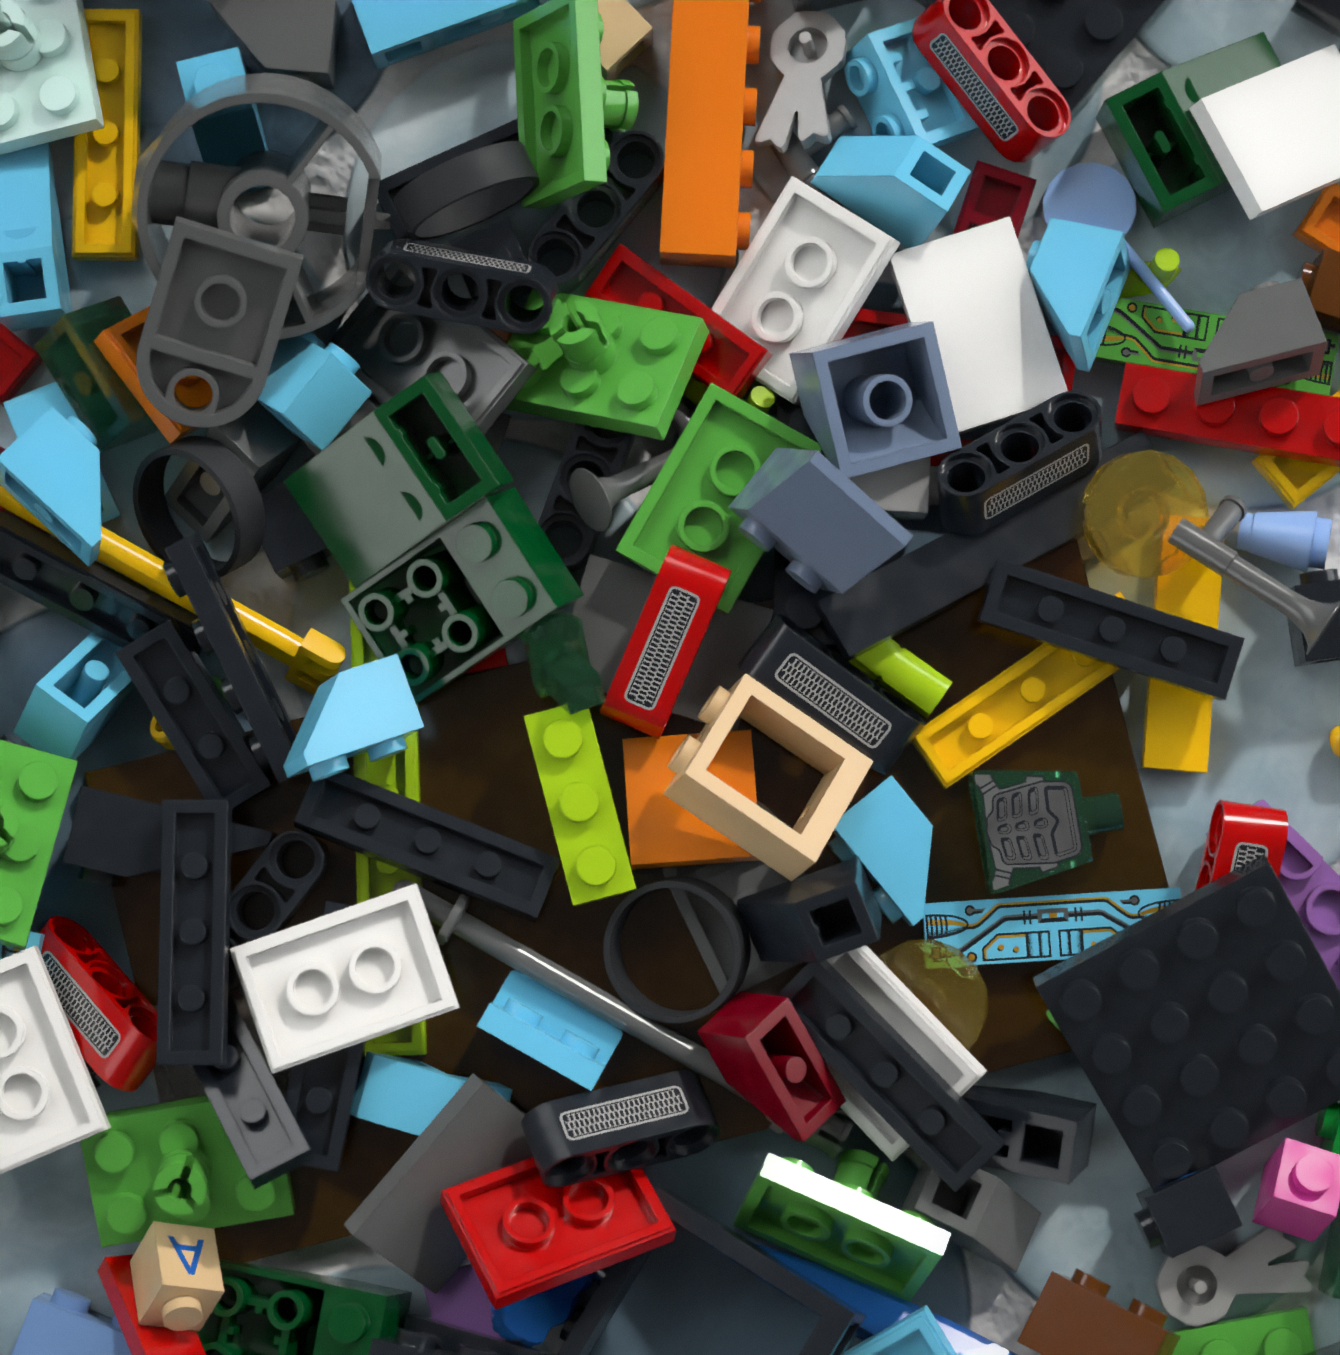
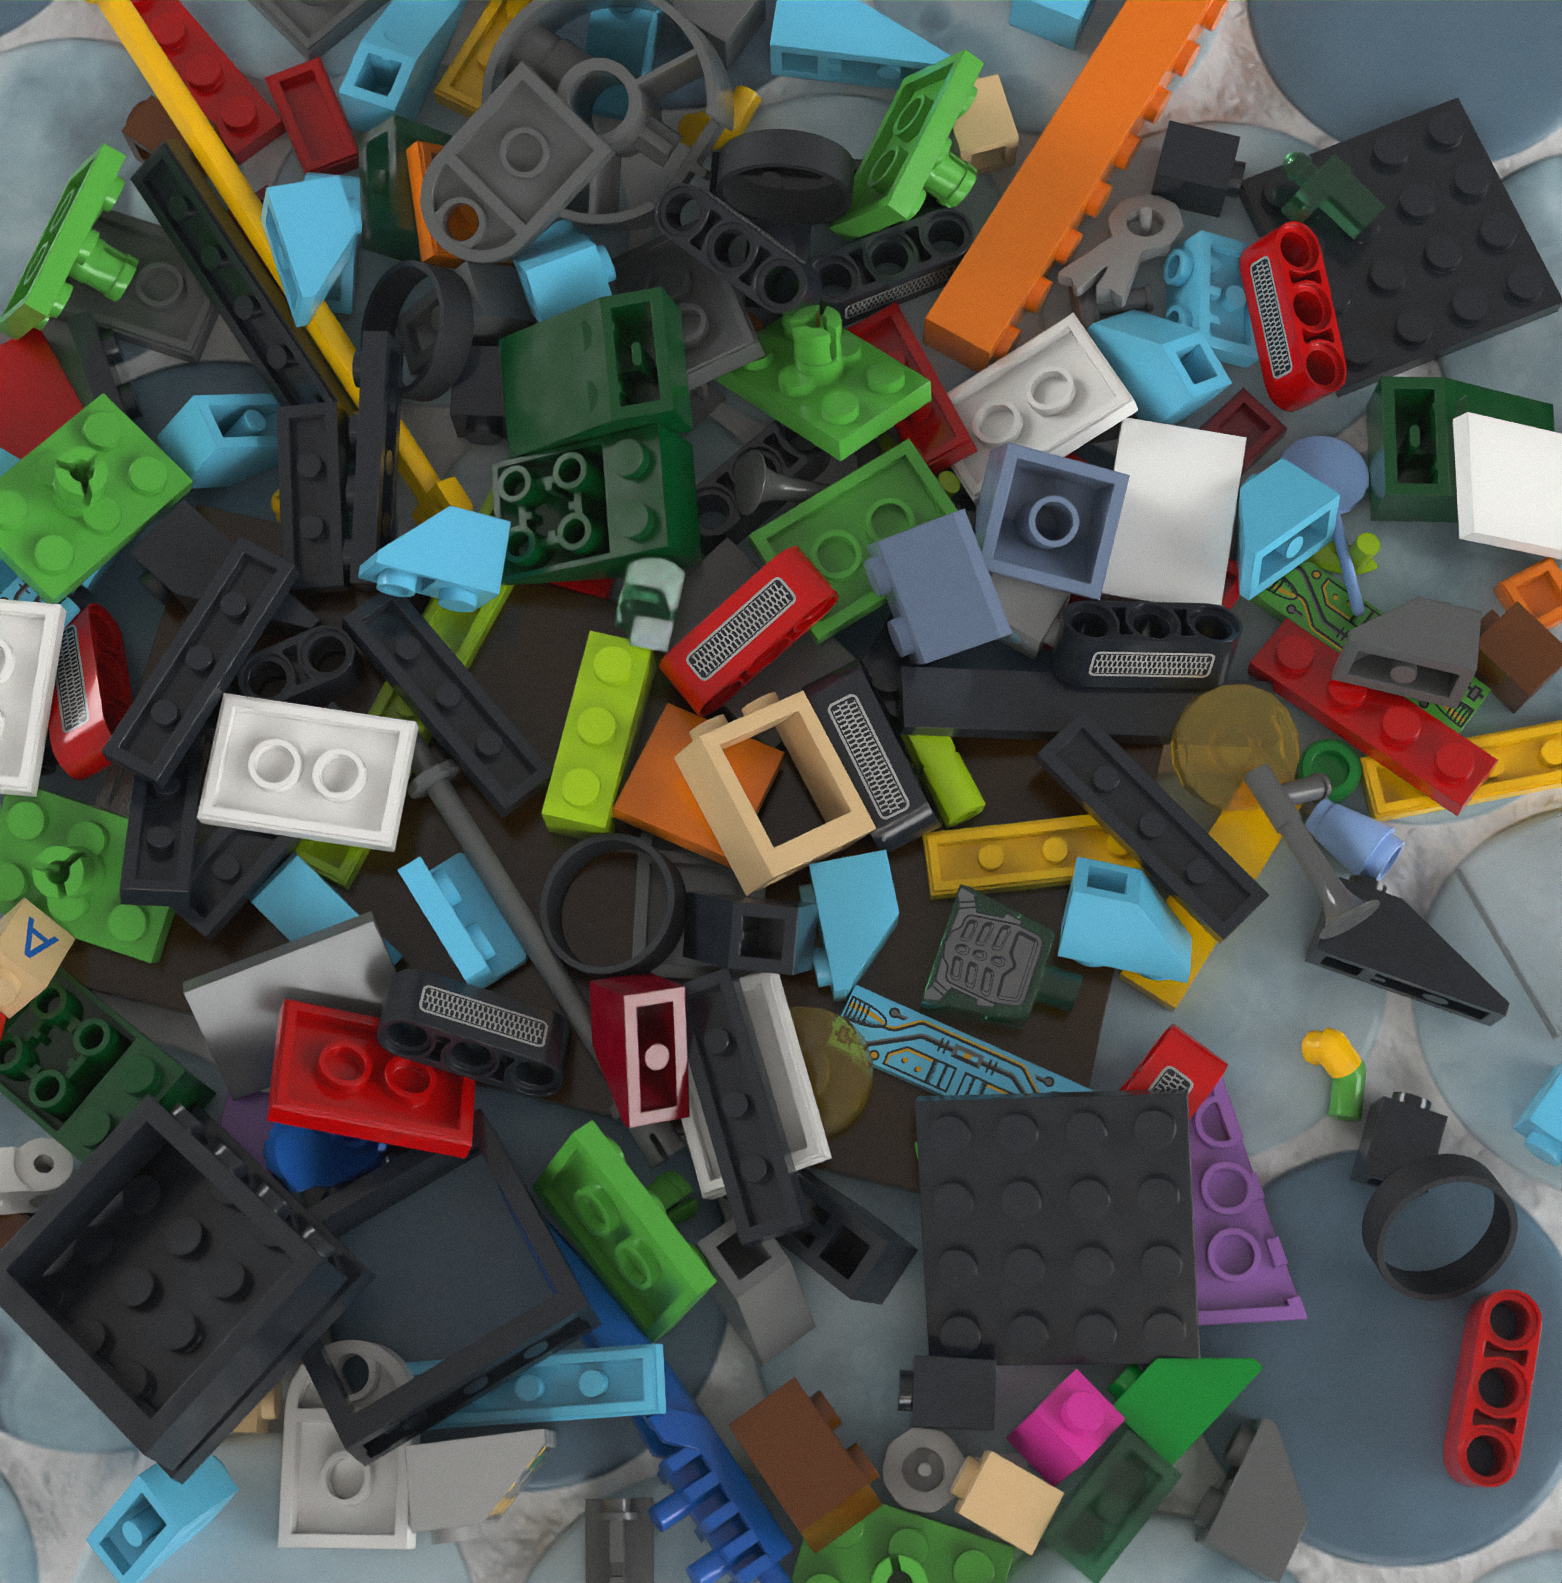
camera: 30 degrees right, 10 degrees down
(345, 164) = (745, 106): none -> yellow arm
(1128, 729) = (1122, 923): none -> medium azure slope
(1232, 475) = (1337, 762): none -> green tile
(1282, 1278) = (1005, 1500): none -> tan brick

